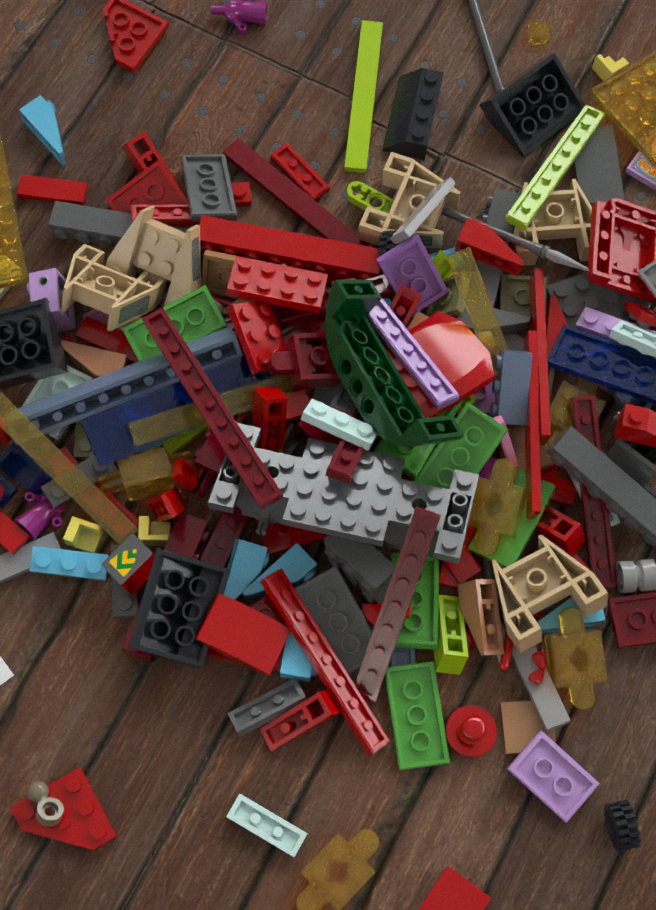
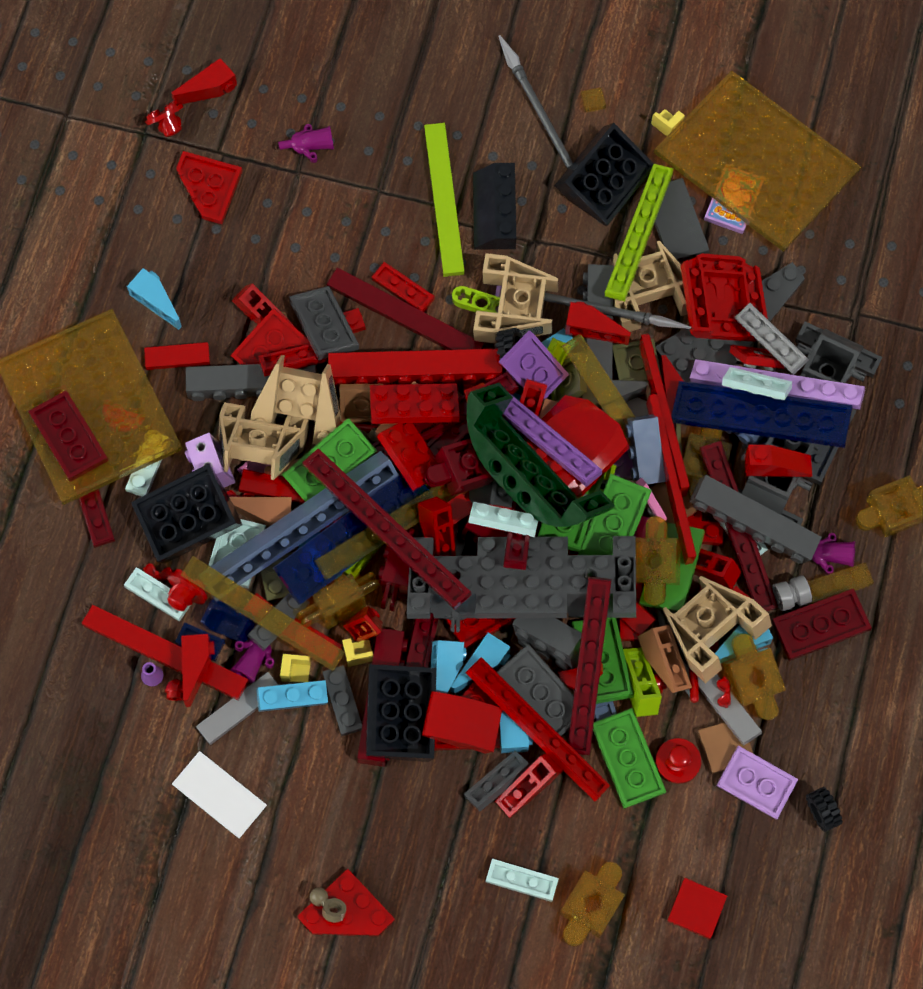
camera: 10 degrees left, 0 degrees up
(130, 564) = (348, 684): piece -> none
(185, 474) = (375, 593): red plate -> none
(423, 211) = (529, 306): light grey tile -> none

